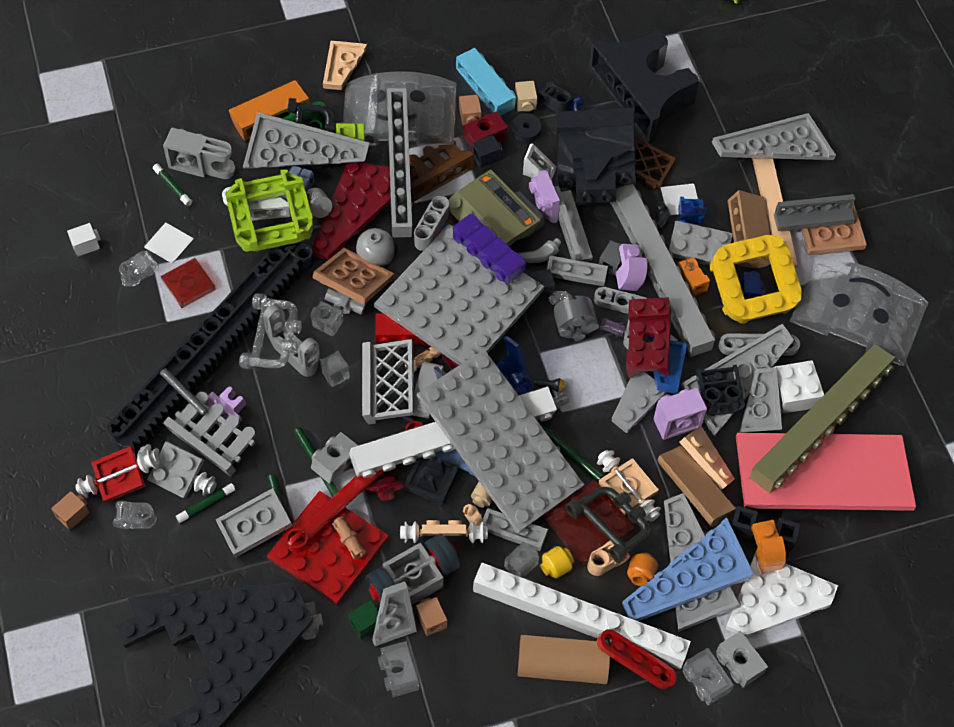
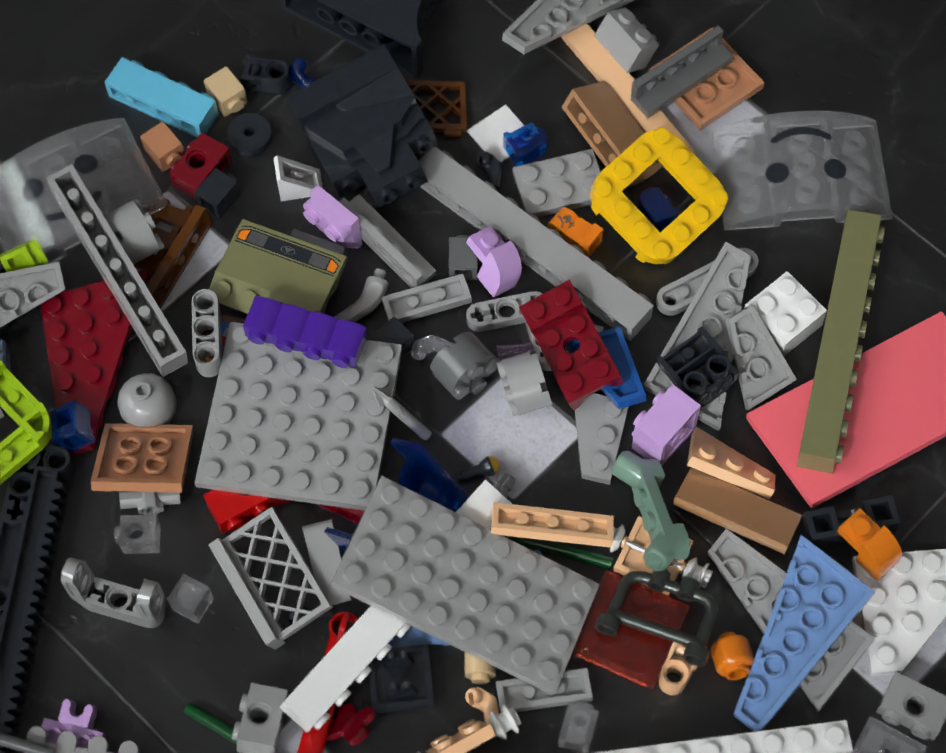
camera: 25 degrees left, 5 degrees up
(288, 345) = (113, 602): clear bar -> none
(319, 202) = (36, 378): light grey piece -> none
(322, 237) = (71, 426): none -> clear blue brick
(422, 146) = (134, 231): none -> light grey brick
(424, 356) = (297, 519): light nougat axle -> none
(513, 308) = (383, 397): none -> light grey piece
(557, 562) = (622, 704): yellow head -> none
(573, 433) = (552, 524): none -> light nougat plate
(607, 346) = (524, 383): none -> light grey brick
(641, 478) = (667, 539): none -> sand green plate
(792, 178) = (626, 39): none -> light grey brick

